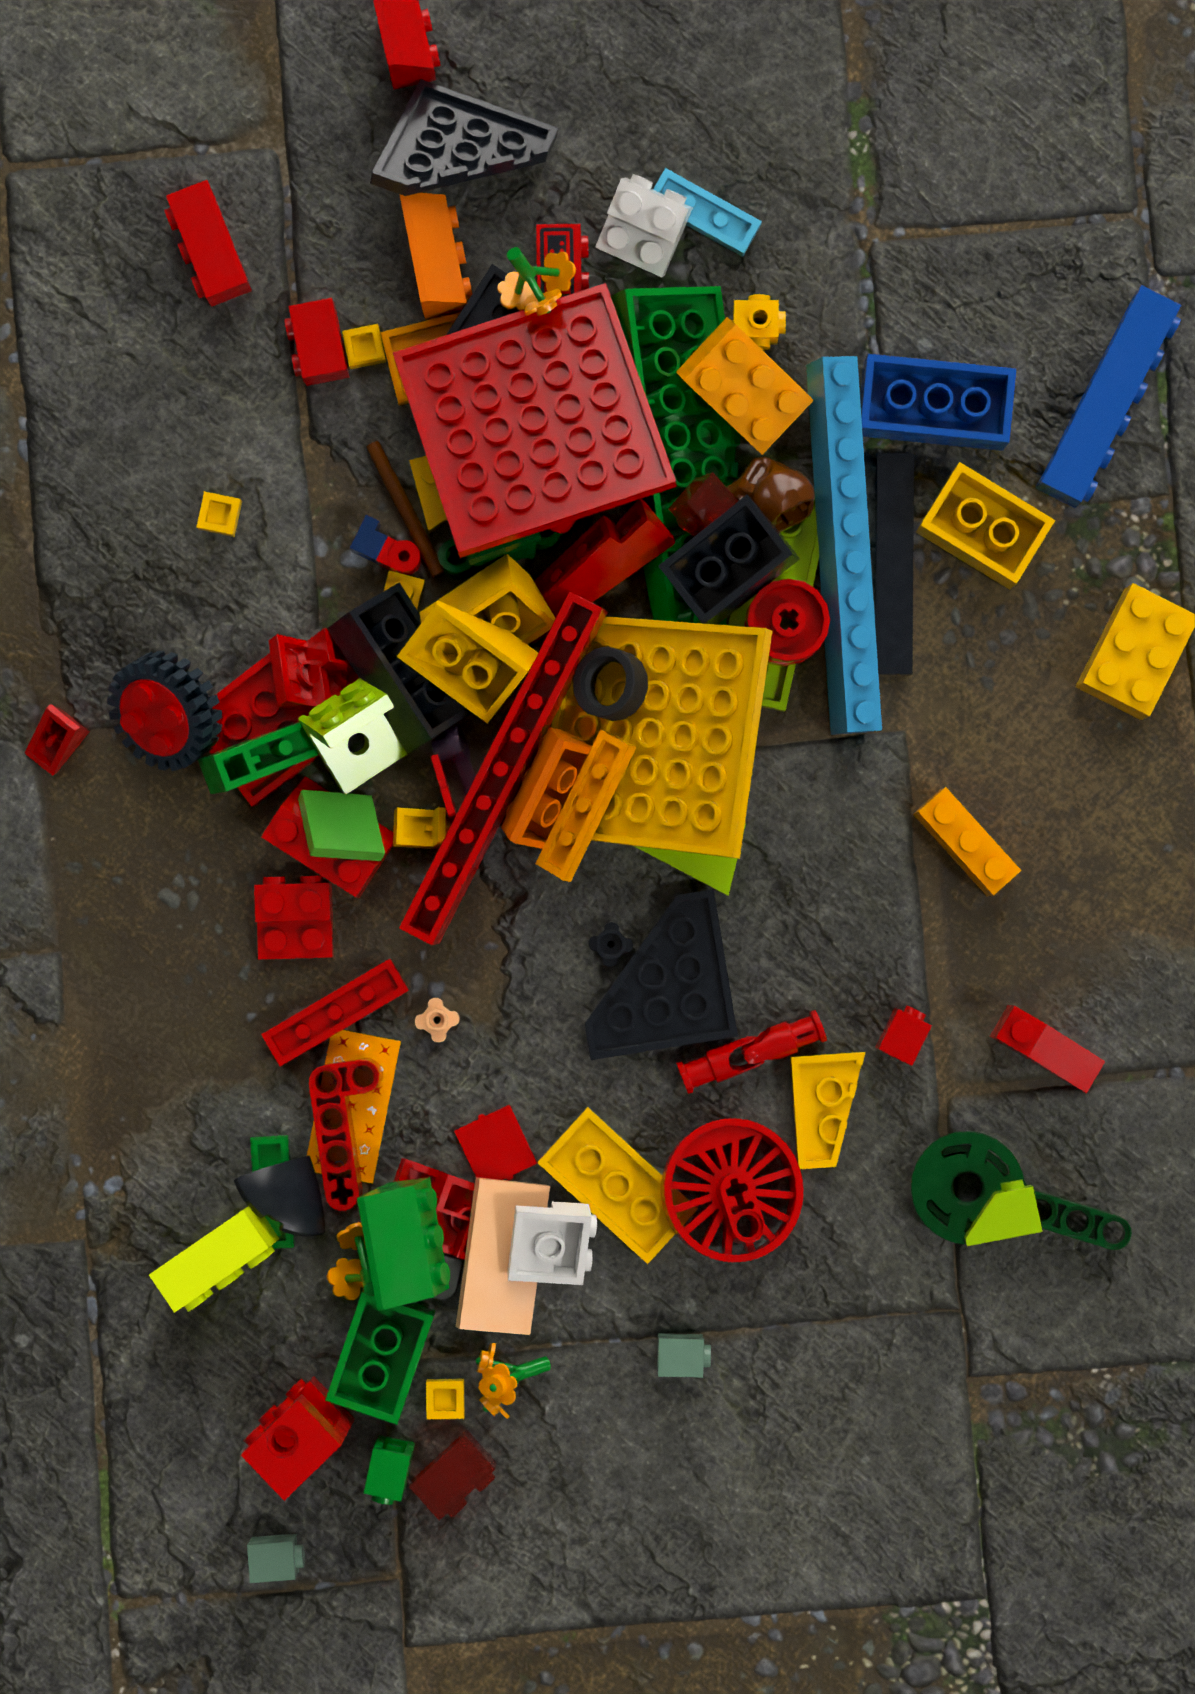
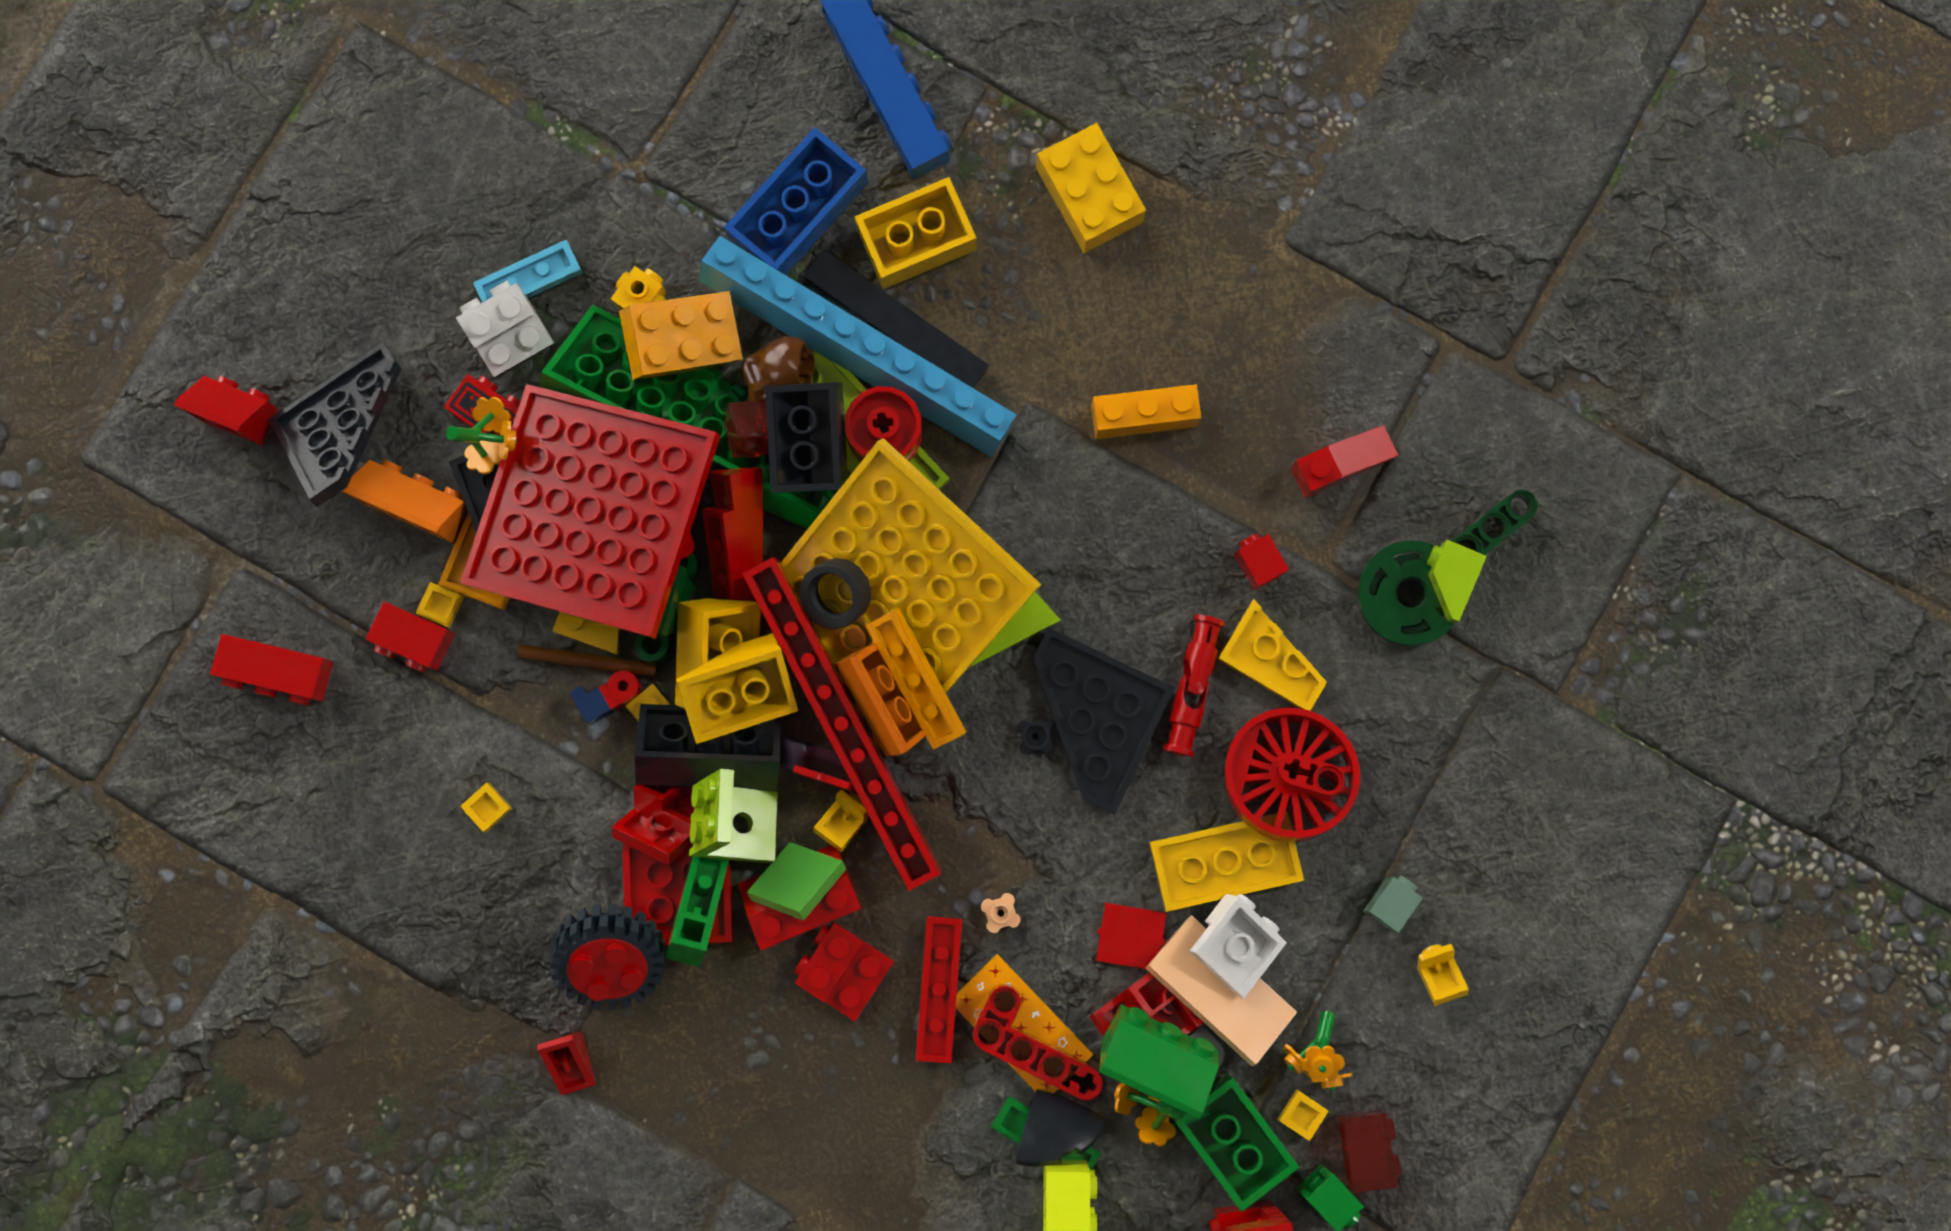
camera: 55 degrees left, 5 degrees down
(649, 1438) = (1441, 974): none -> yellow bracket

